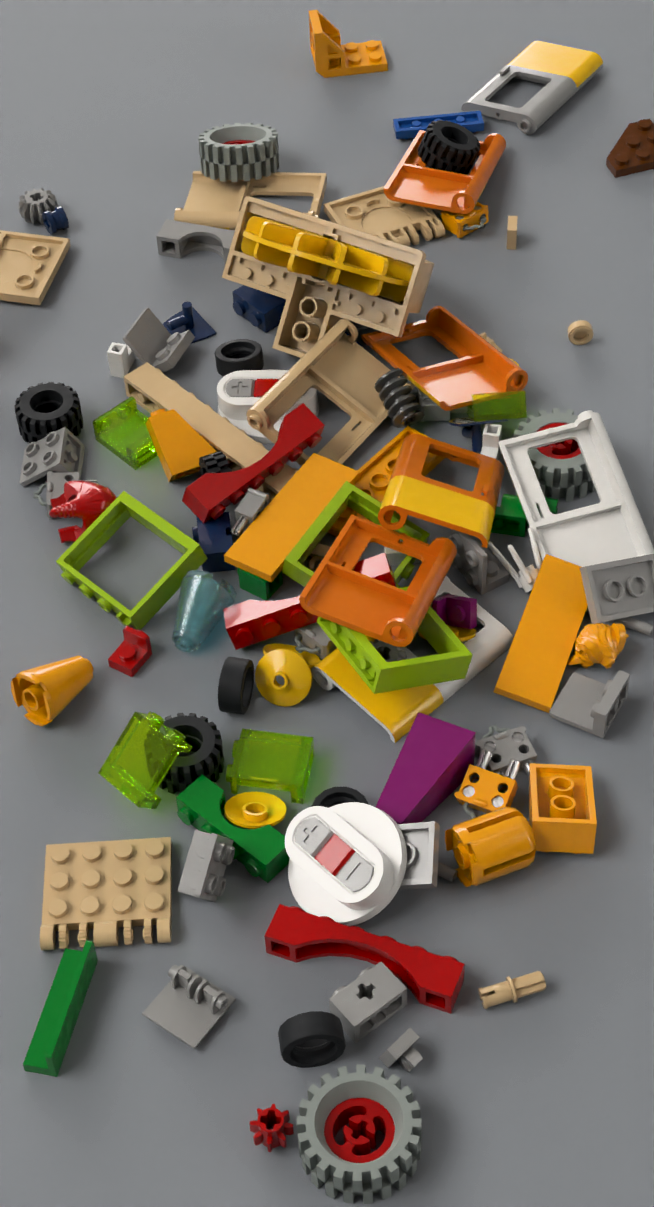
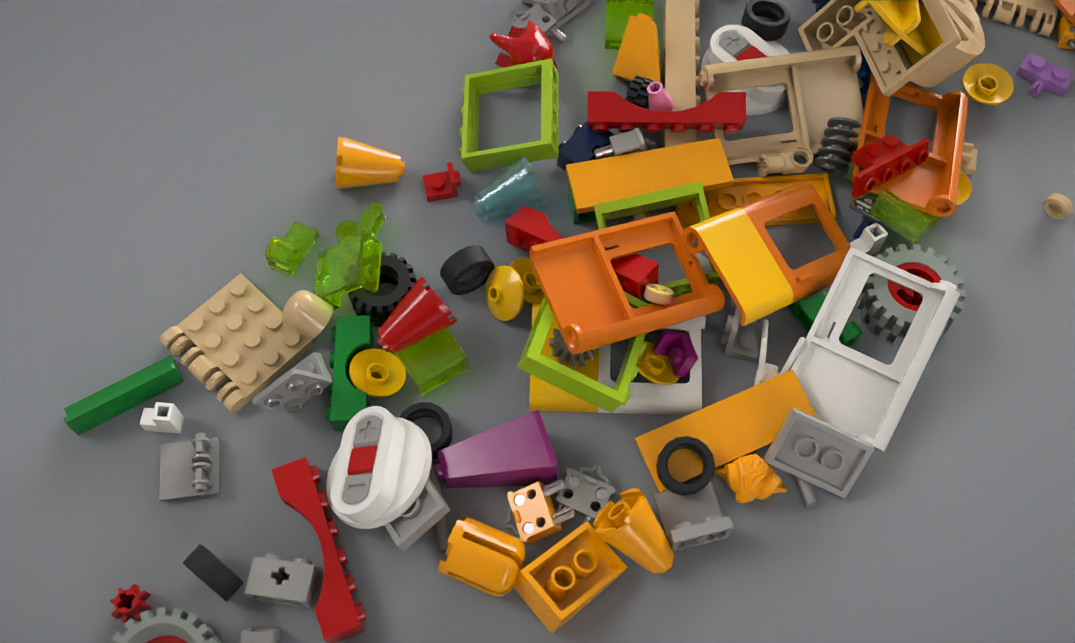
camera: 45 degrees right, 15 degrees up
(66, 794) = (290, 251): none -> clear neon green plate
(108, 733) = (369, 223): none -> clear neon green plate
(124, 992) = (162, 418): none -> white piece
(151, 814) = (307, 313): none -> tan helmet
(238, 457) = (658, 98): none -> bright pink cone
(249, 733) = (415, 319): none -> red cone
(373, 439) = (784, 162): none -> tan connector
(407, 573) = (658, 294): none -> tan tile
(446, 291) = (987, 84): none -> yellow dish
(449, 375) = (884, 161): none -> red bracket
(472, 260) = (1044, 75): none -> medium lavender plate
(556, 653) = (707, 461): none -> black tyre
(570, 734) = (635, 531): none -> light orange cone

